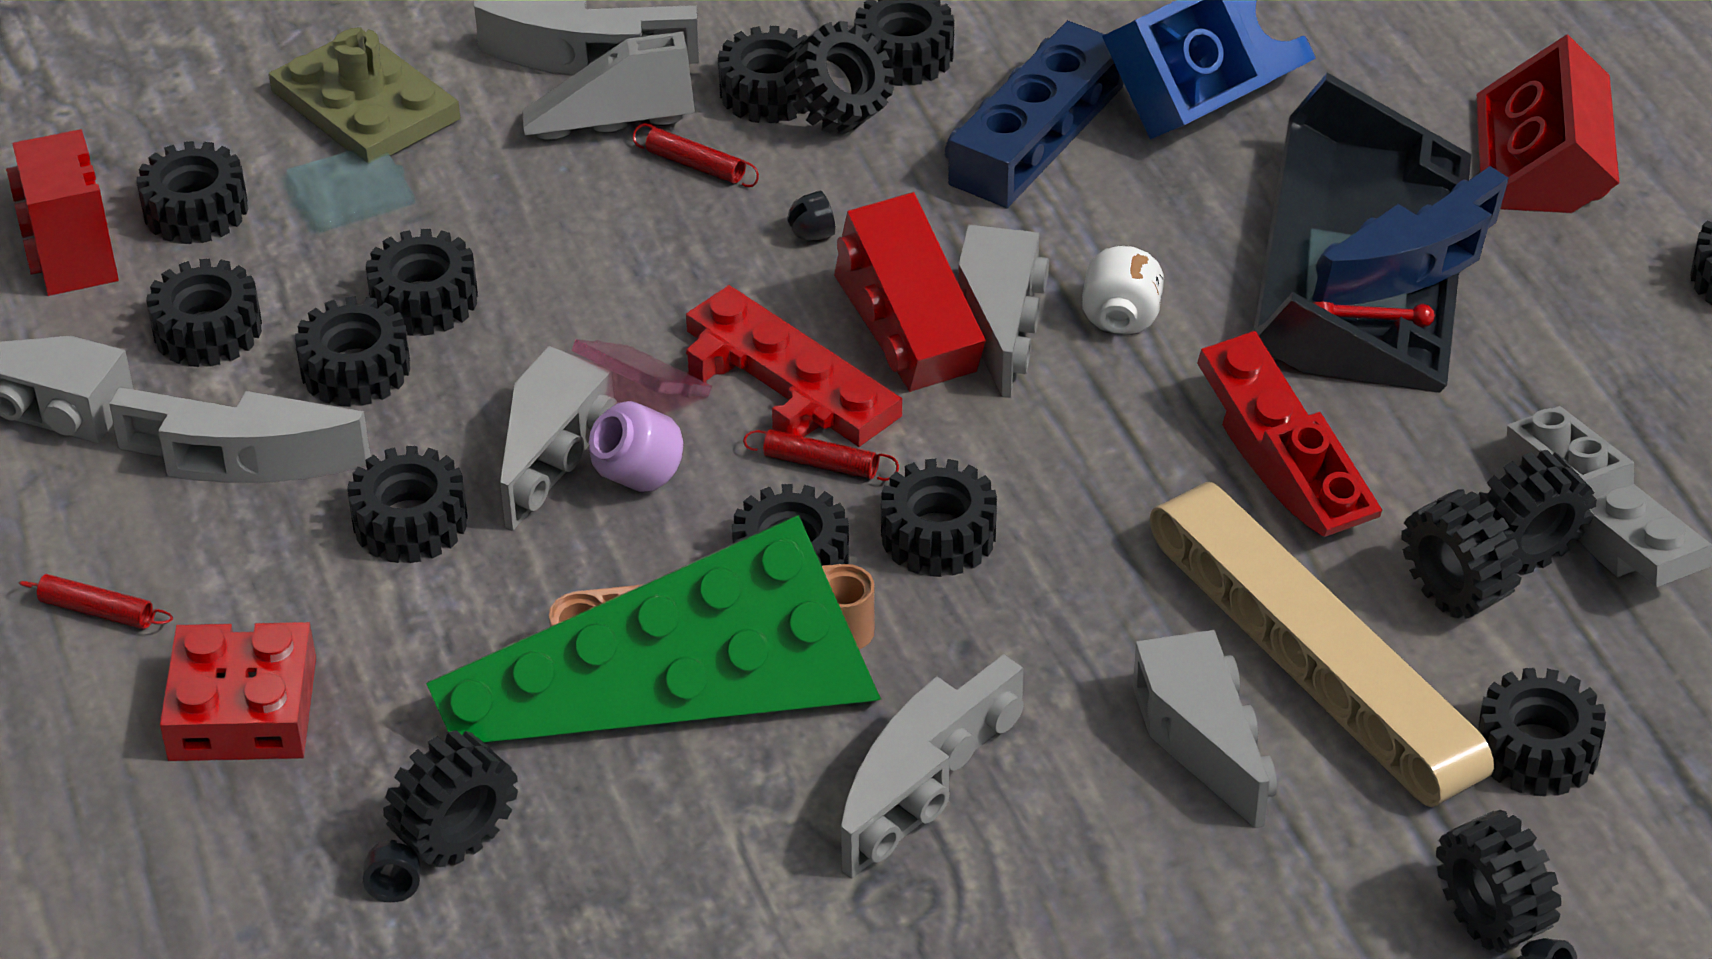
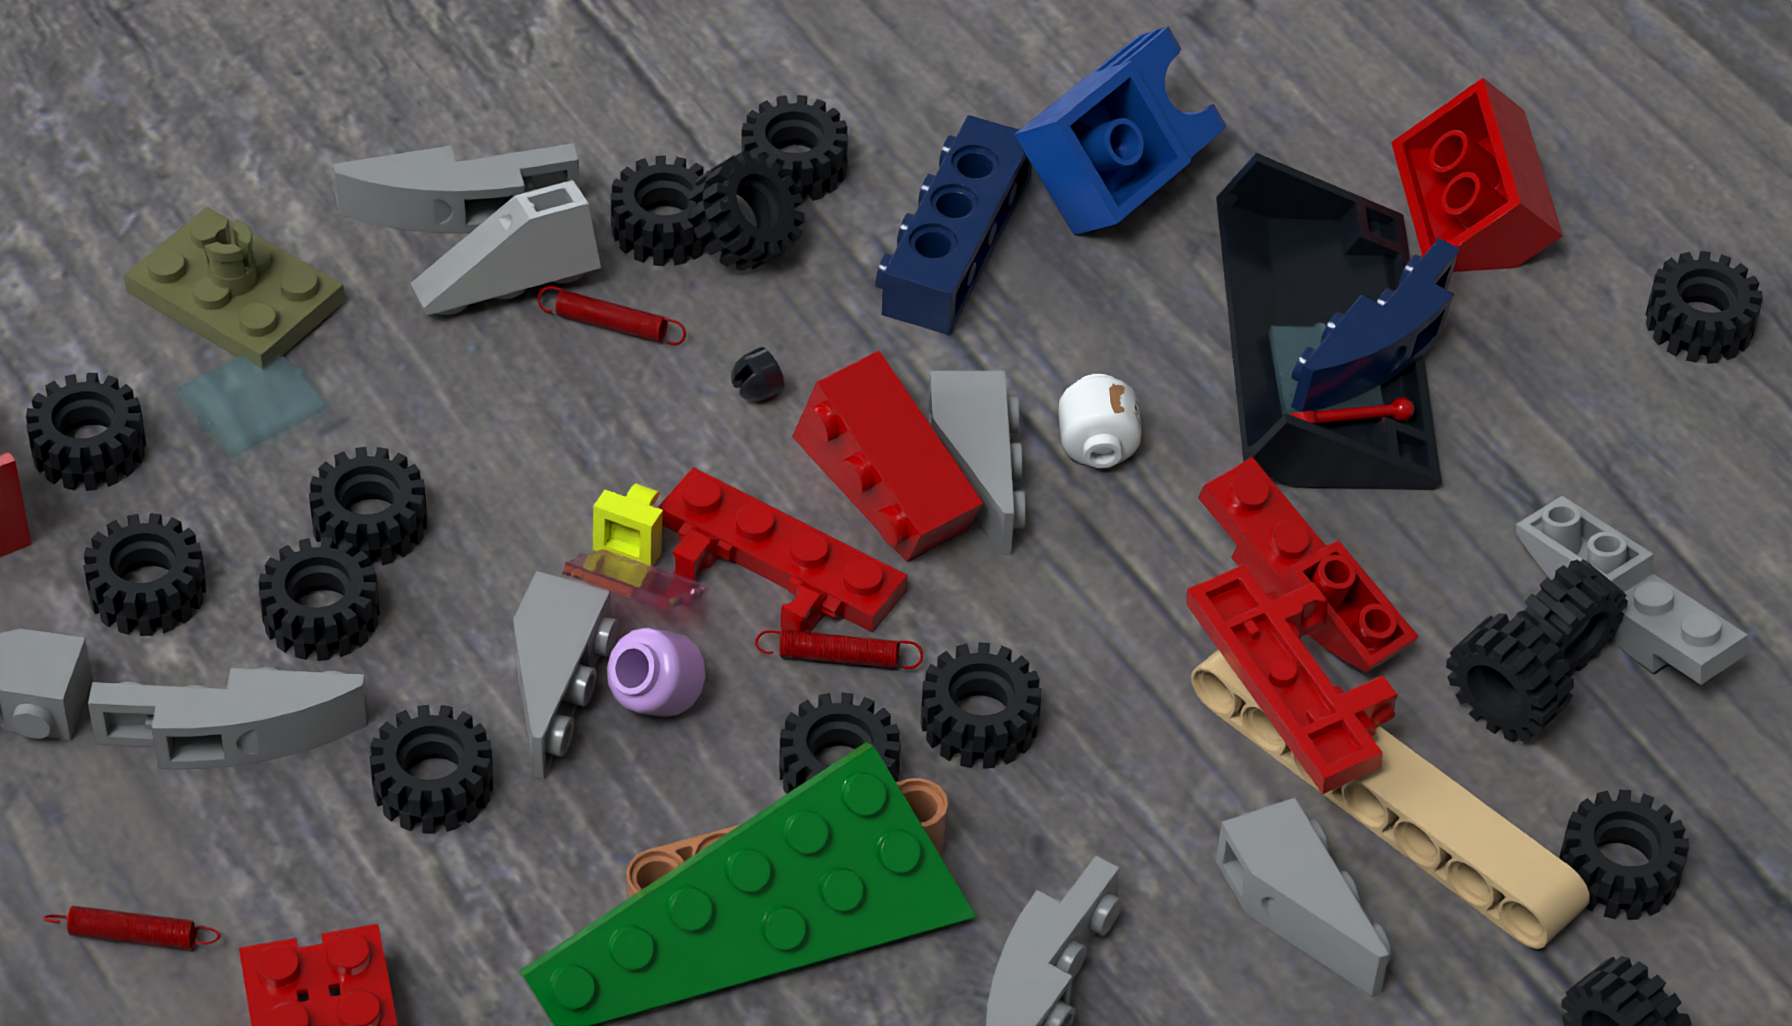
camera: 15 degrees left, 5 degrees up
(653, 323) = (629, 524): none -> neon yellow tile
(1218, 493) = (1263, 645): none -> red hinge

